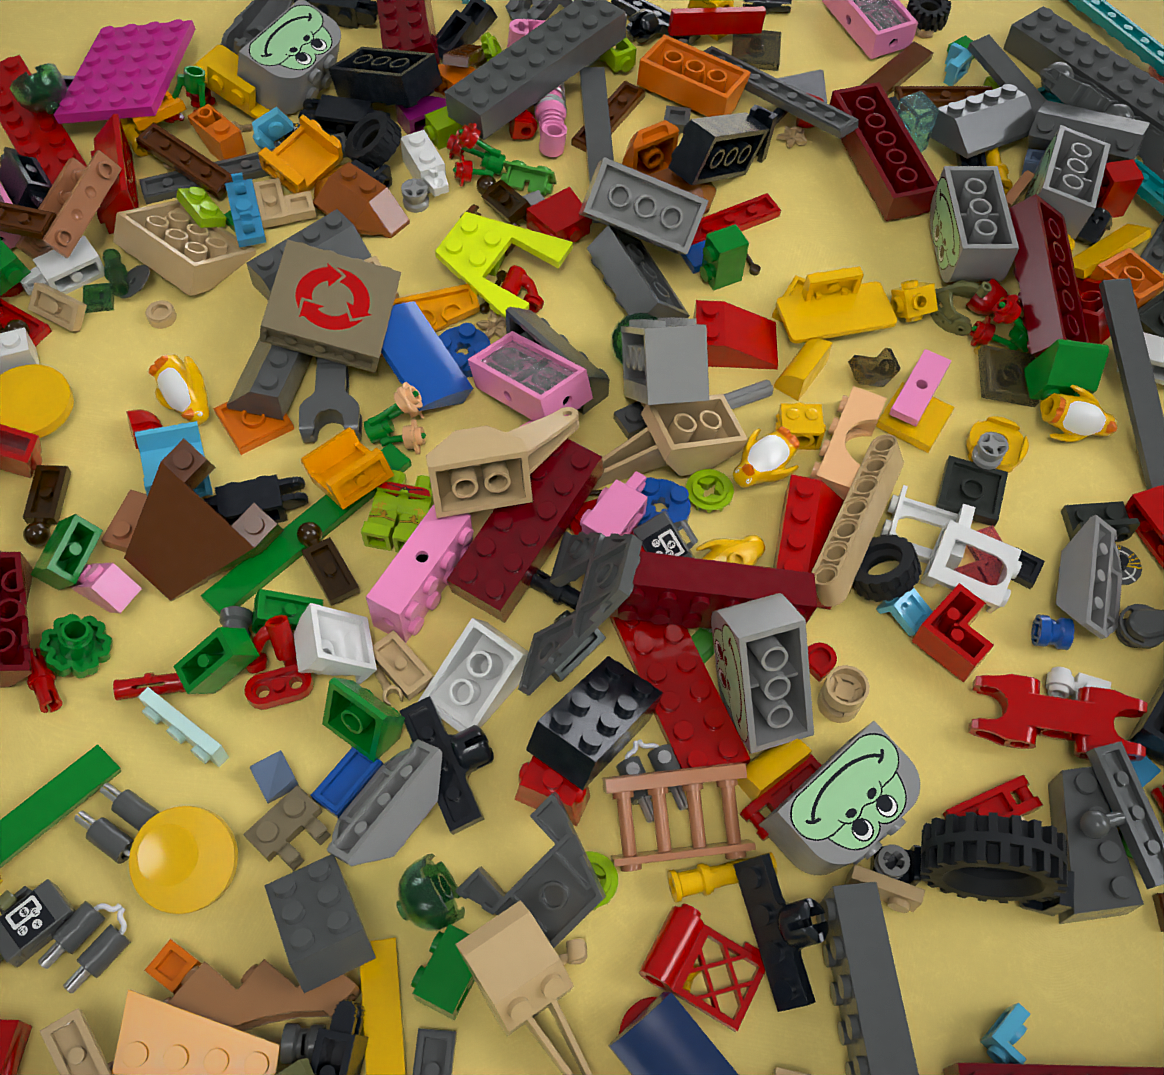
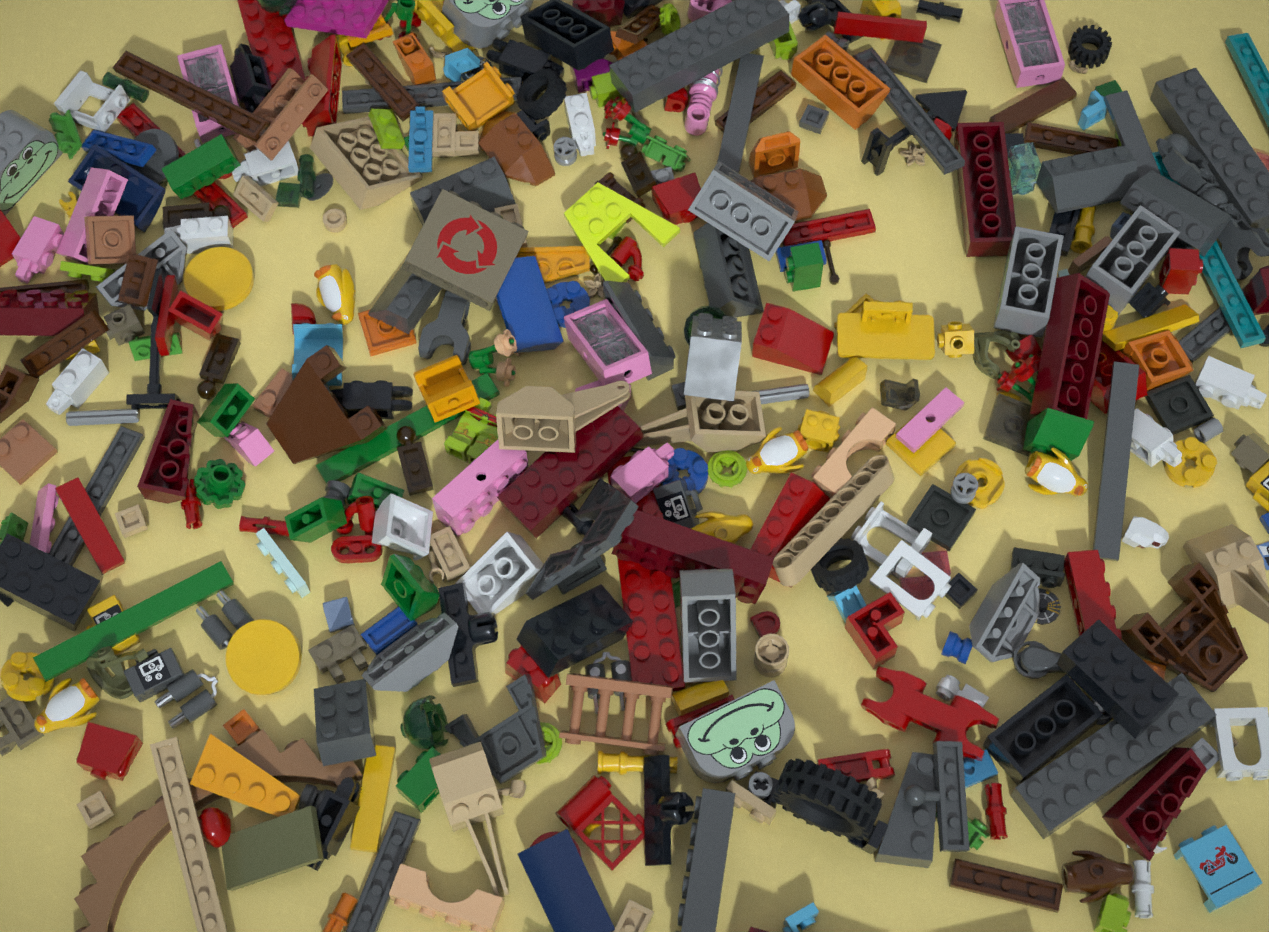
camera: 20 degrees right, 5 degrees up
(717, 147) = (830, 164): black brick -> none

